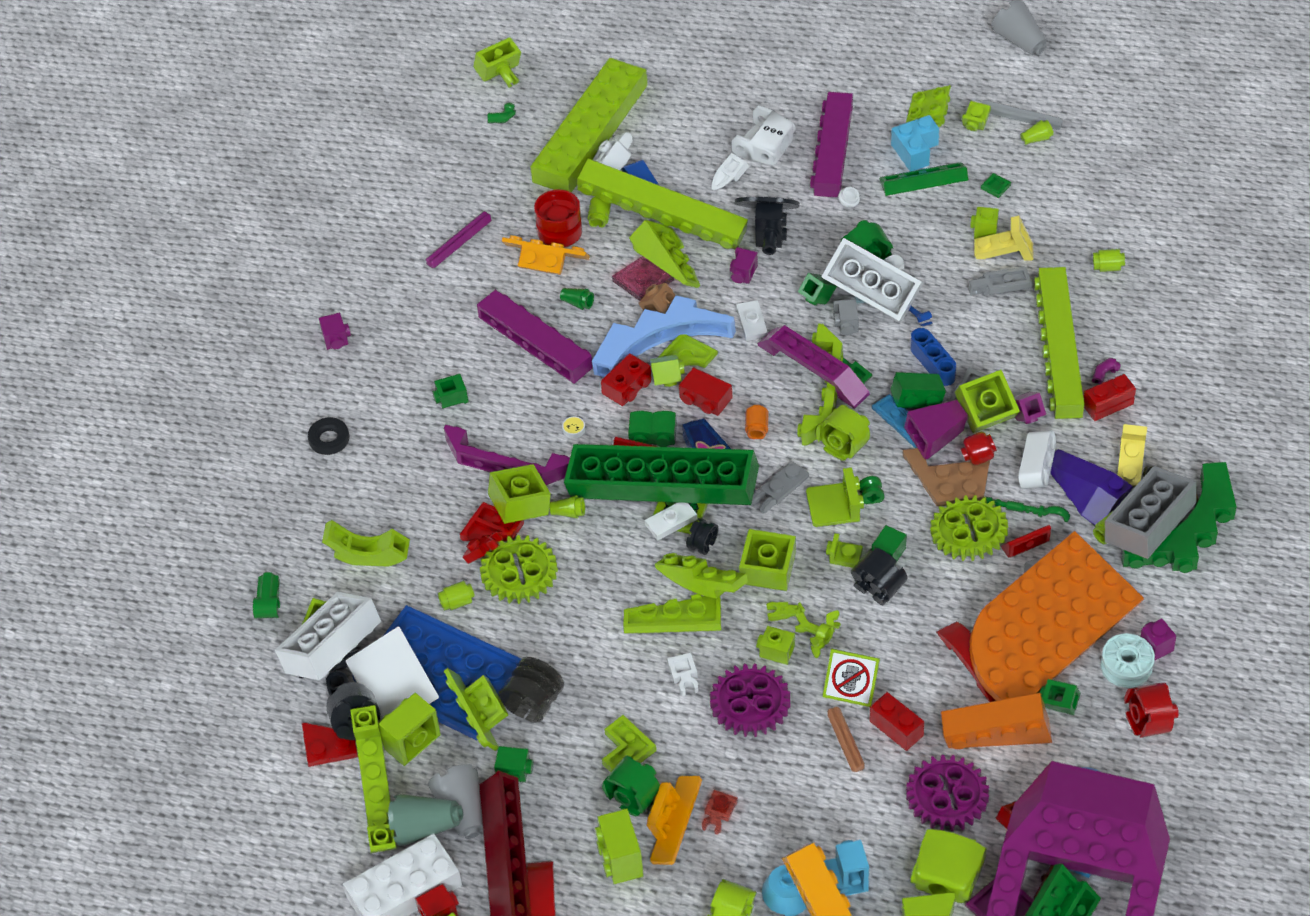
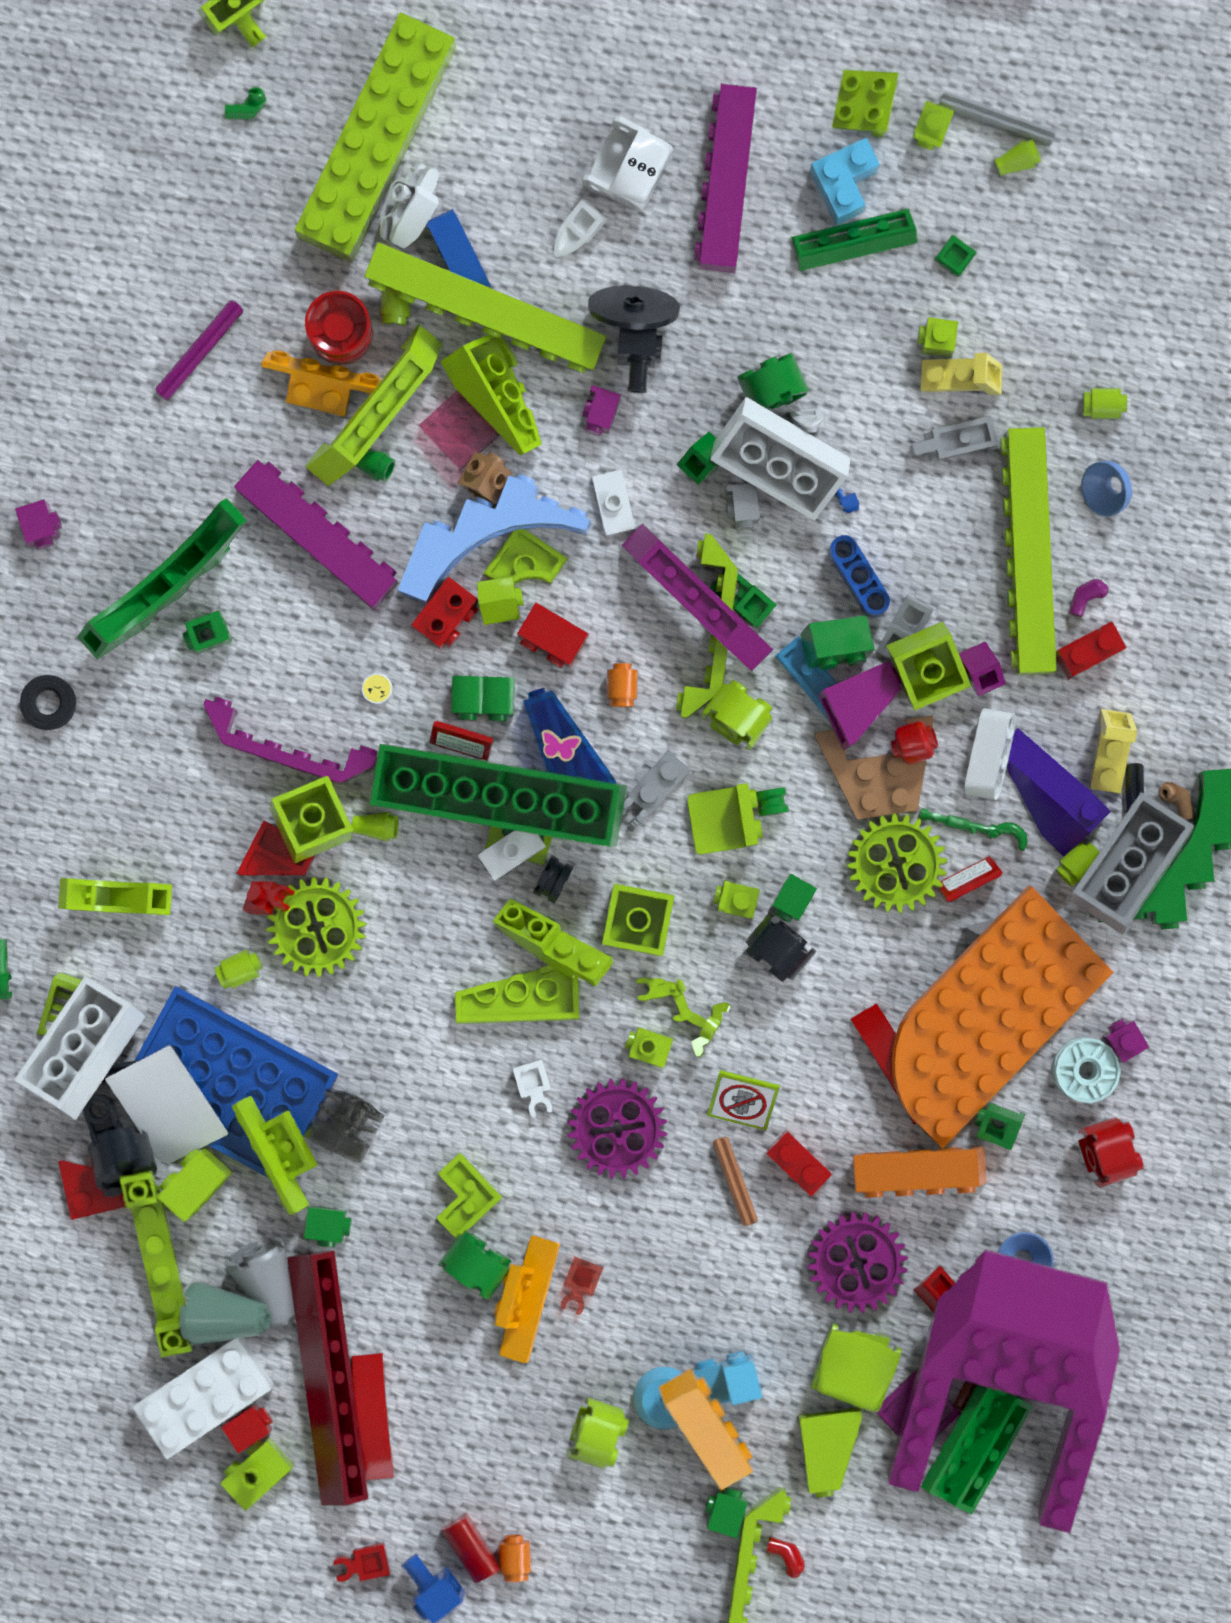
camera: 10 degrees left, 35 degrees up
(447, 342) = (166, 583): none -> green arch
(578, 264) = (378, 409): none -> lime slope
(618, 847) = (462, 1351): lime brick -> none
(849, 197) = (748, 279): white plate -> none
(1107, 302) = (1098, 490): none -> medium blue piece

